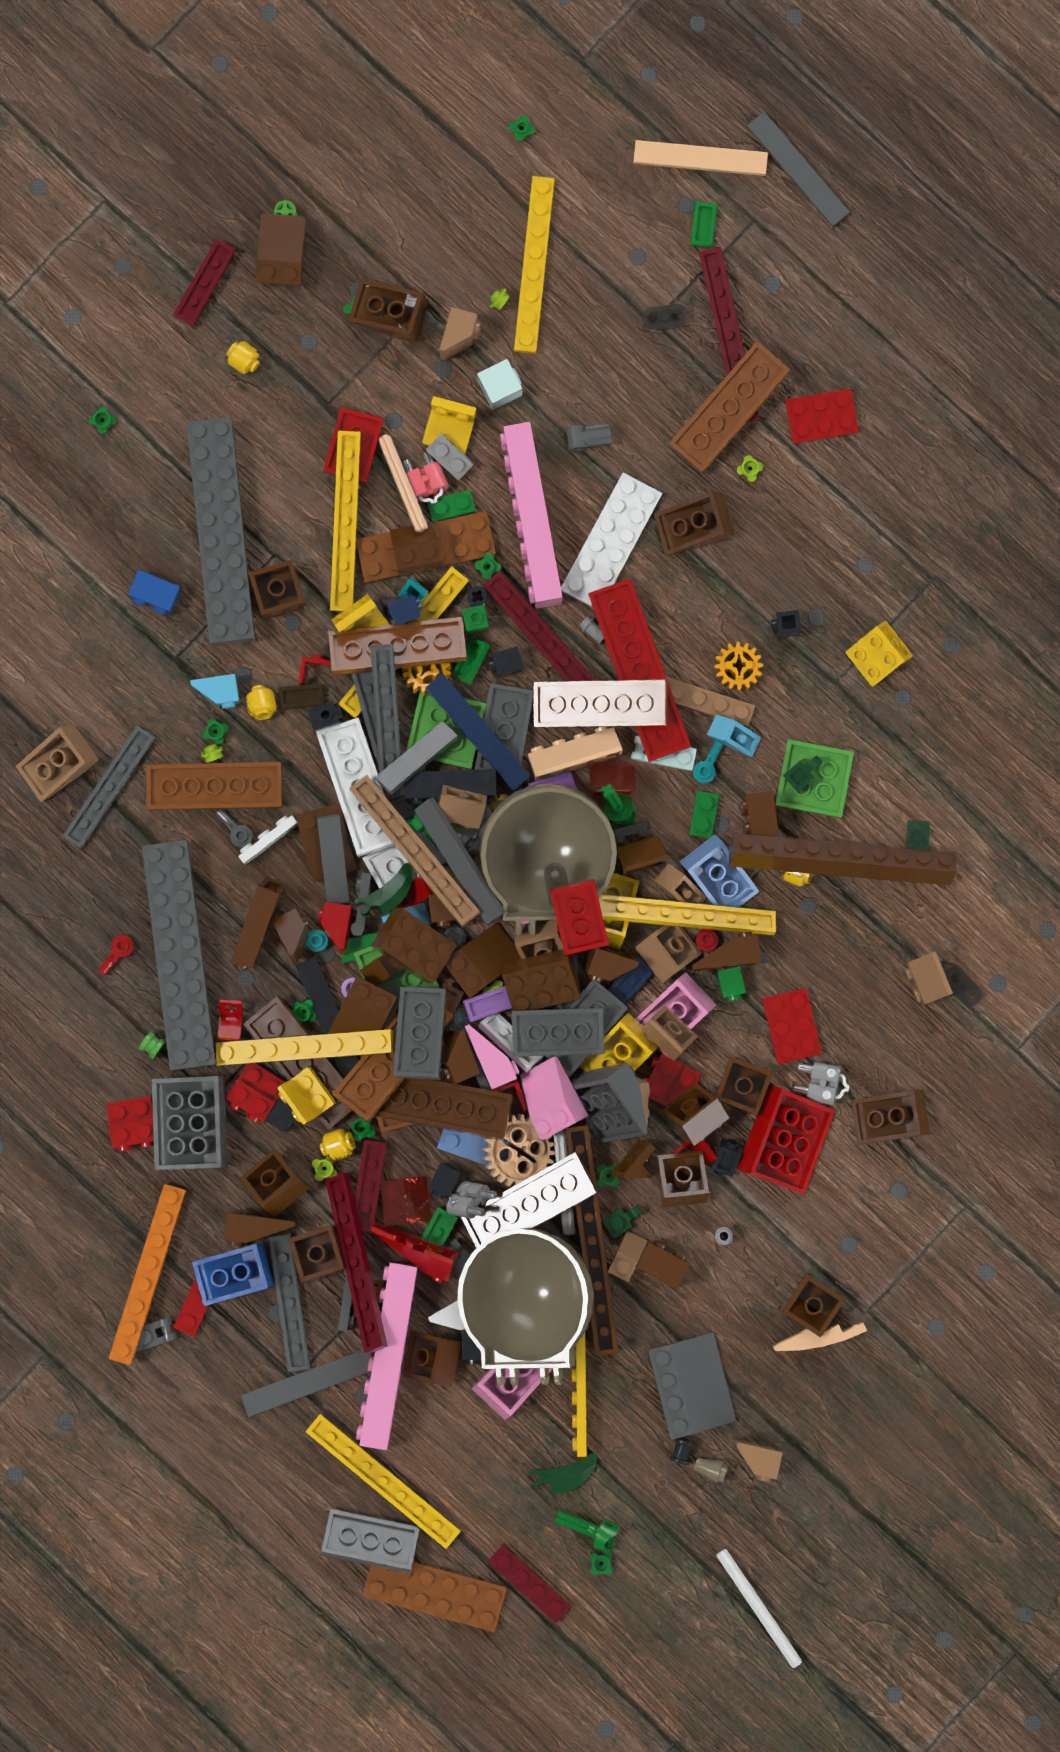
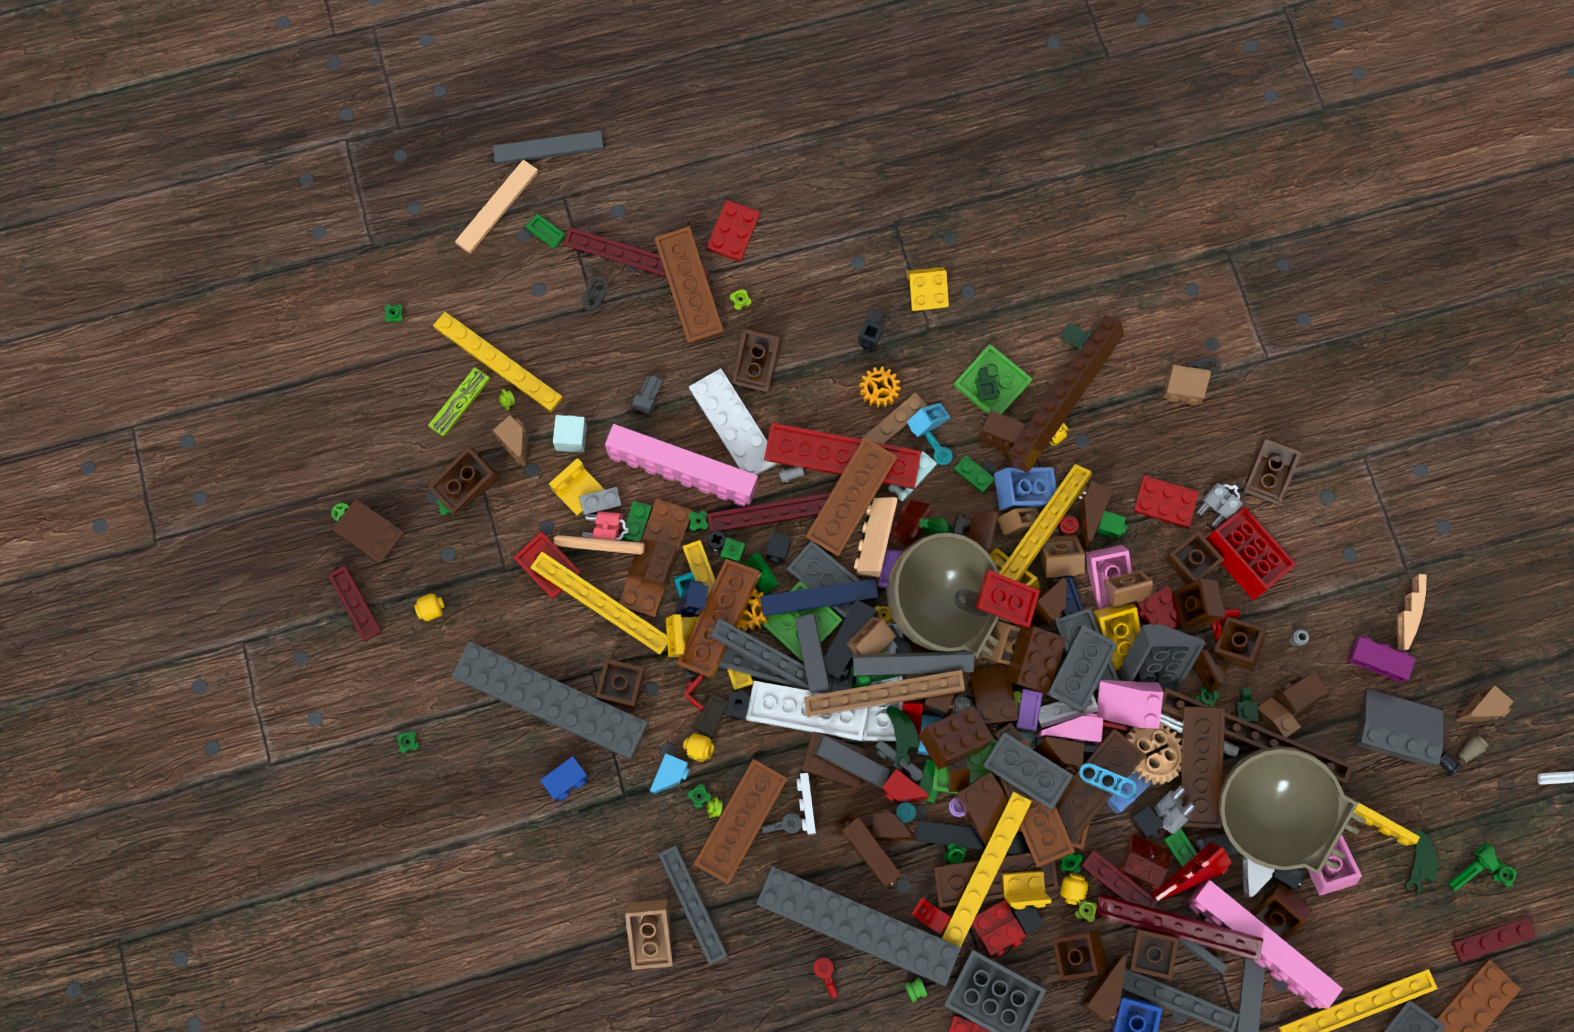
camera: 60 degrees left, 10 degrees down
(449, 1105) = (1100, 774): none -> medium azure beam
(468, 253) = (459, 402): none -> lime tile
(727, 1157) = (1241, 600): black bracket -> none
(752, 1330) = (1381, 659): none -> magenta brick
(813, 1305) = (1387, 602): reddish brown slope -> none

